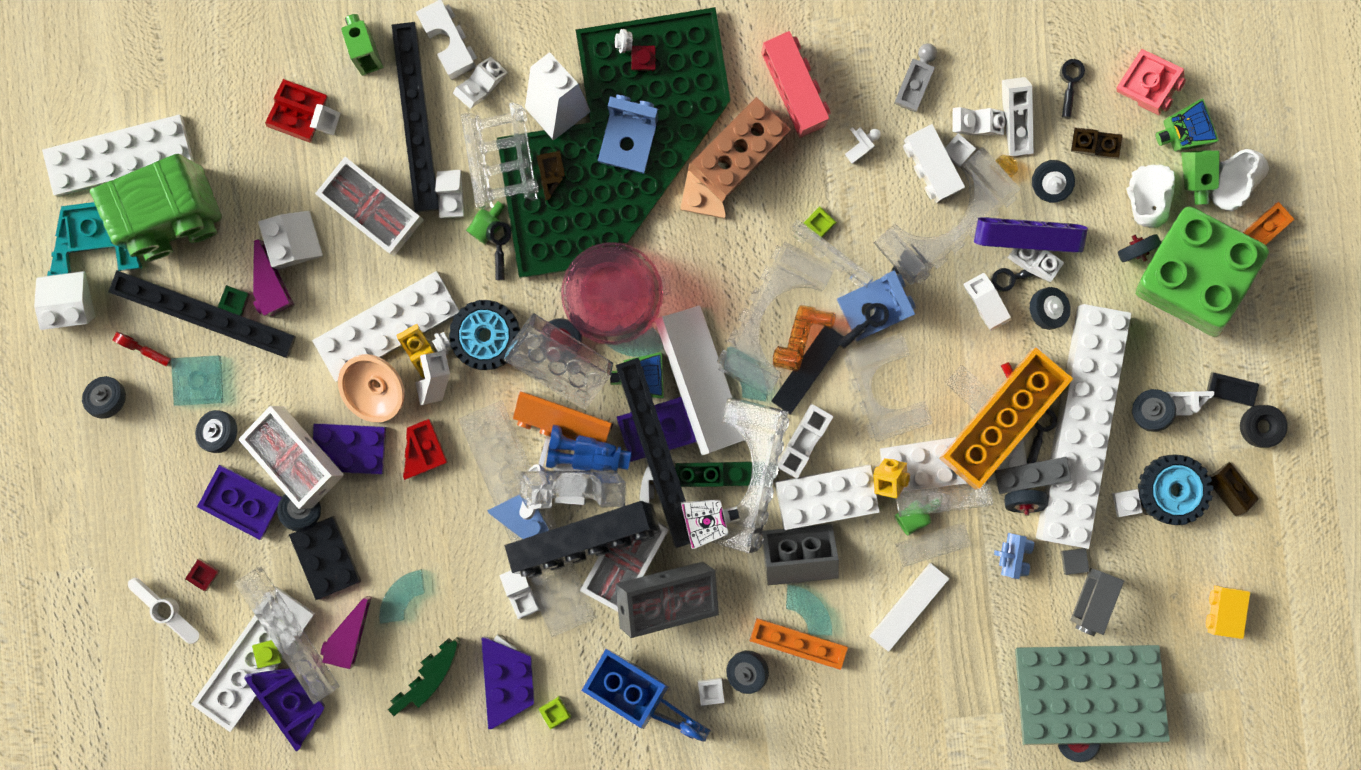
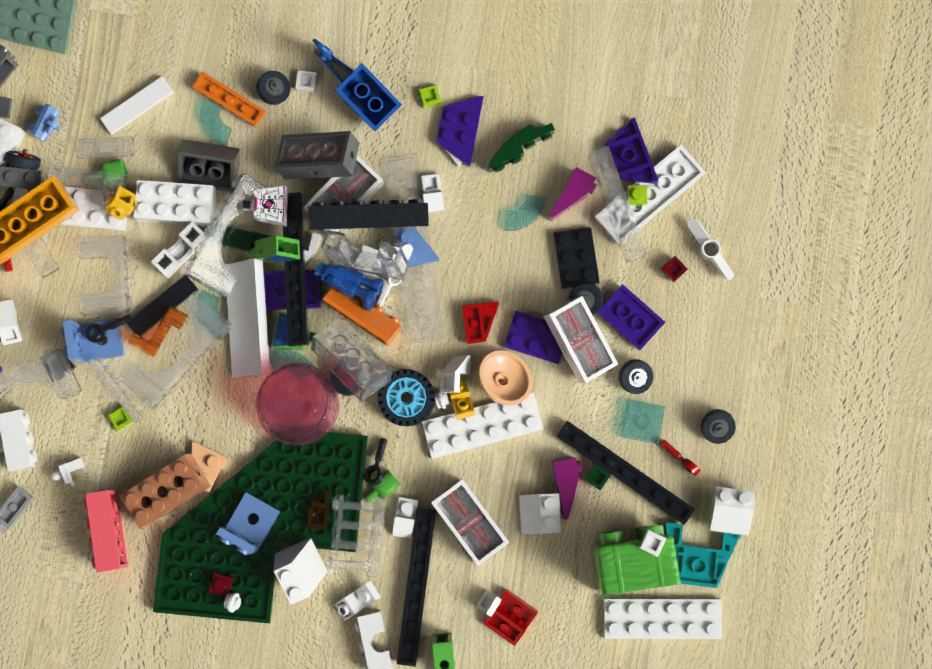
camera: 165 degrees left, 5 degrees down
(132, 228) = (652, 543): none -> white tile
(688, 467) = (267, 249): none -> bright green torso

